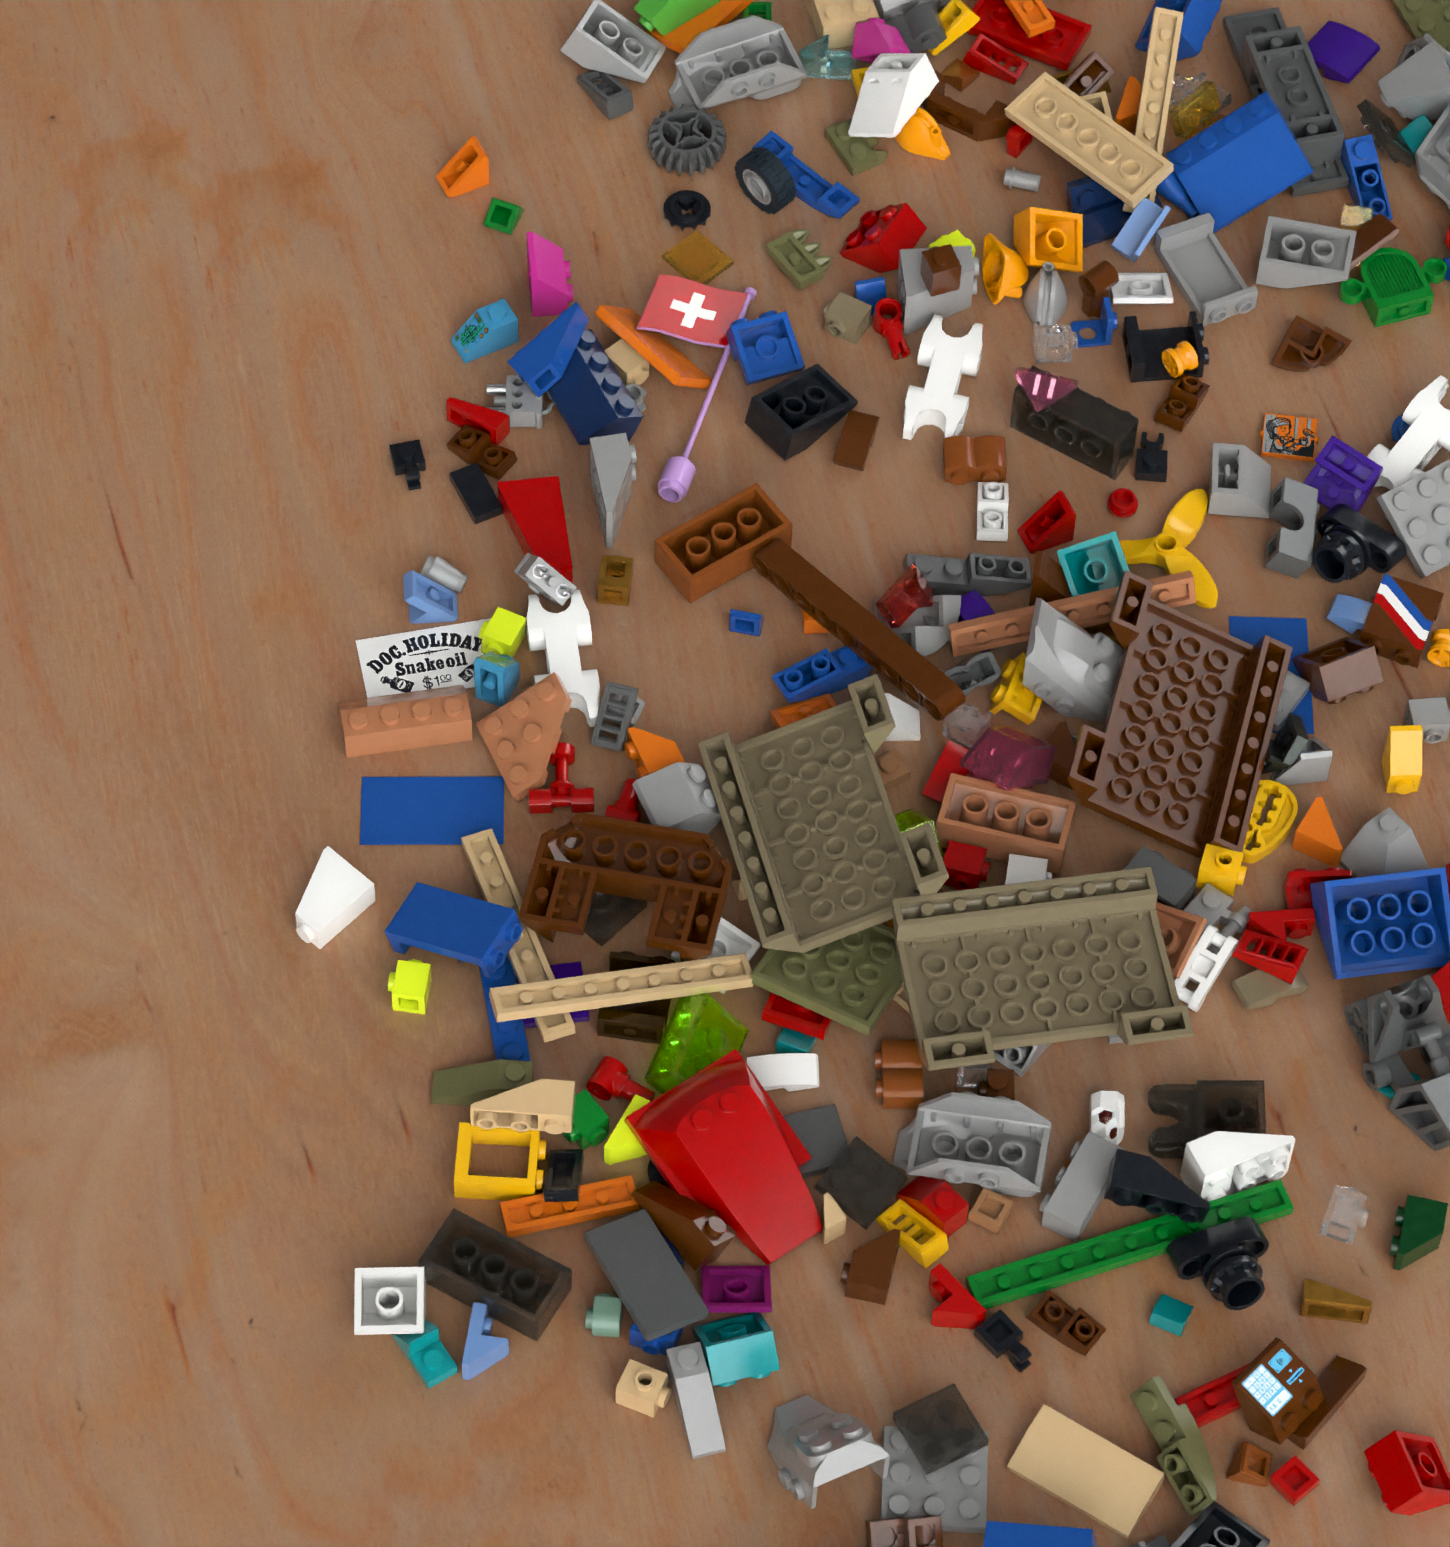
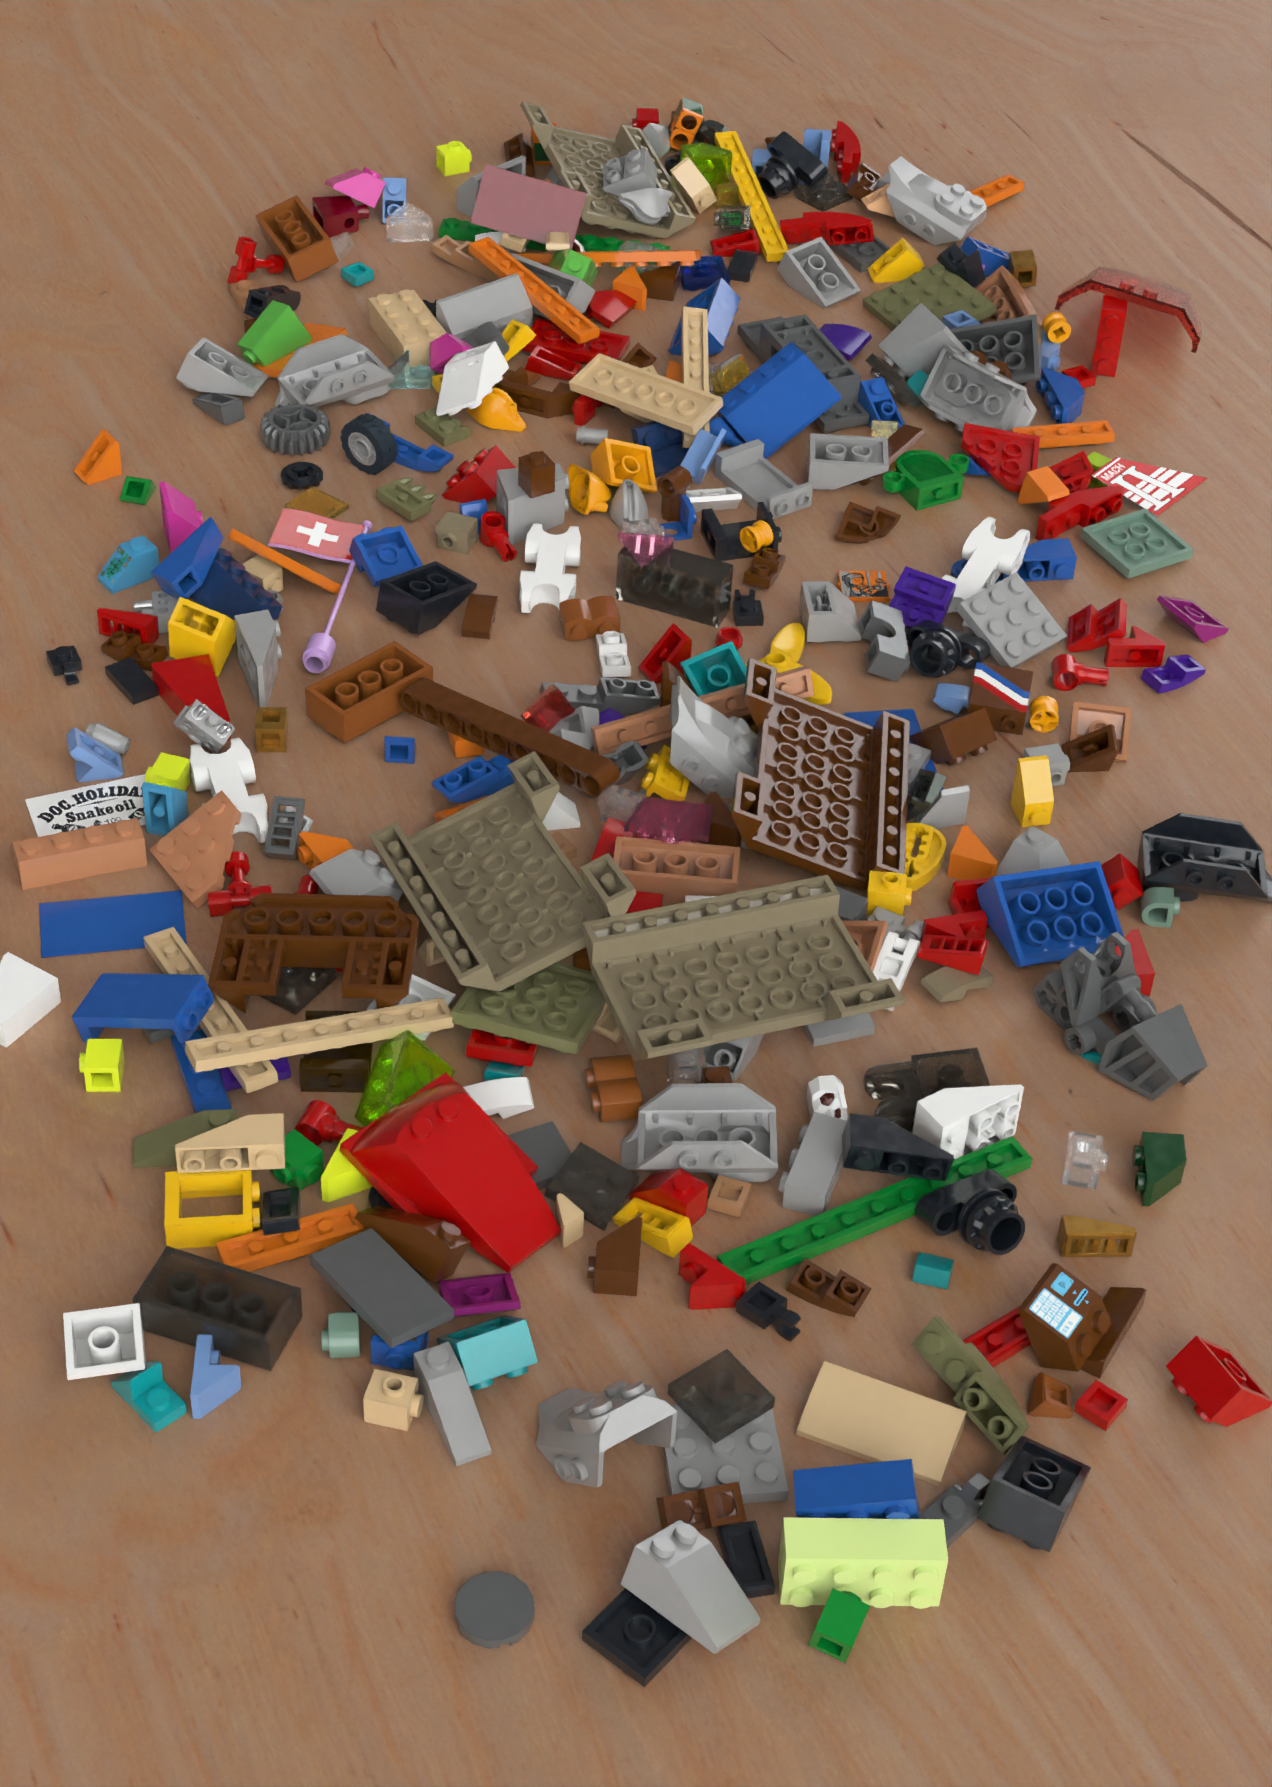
camera: 10 degrees left, 15 degrees down
(553, 448) = (199, 632): none -> yellow slope

